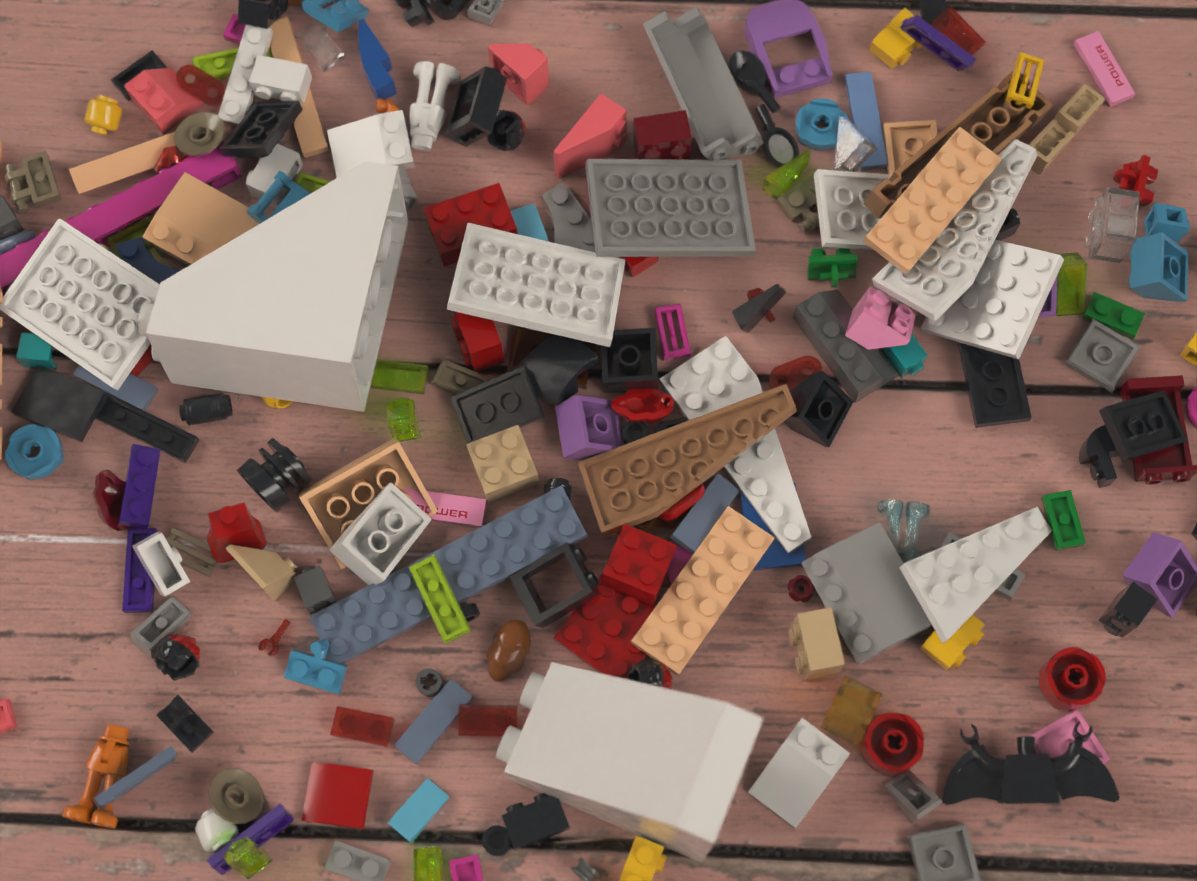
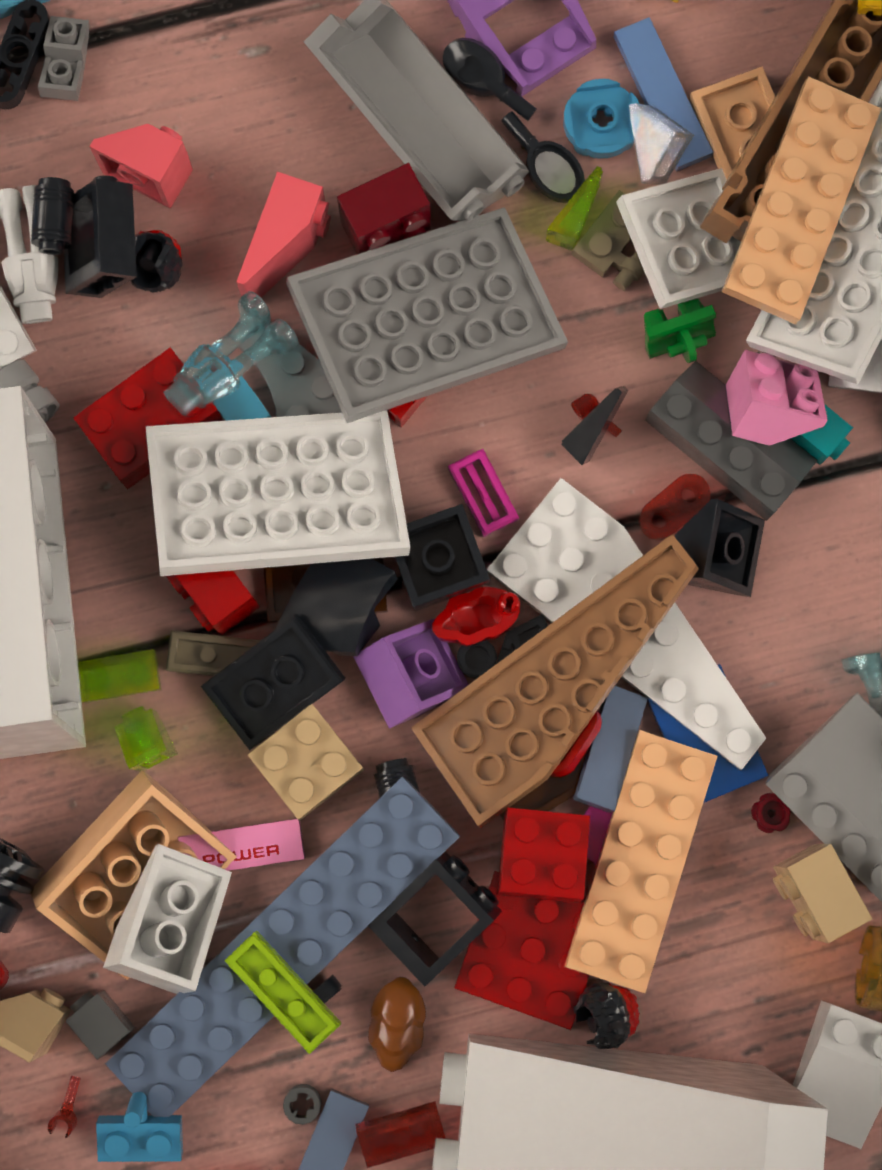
camera: 20 degrees left, 10 degrees up
(451, 84) = (52, 215): none -> black head
(519, 201) = (211, 375): none -> clear light blue piece

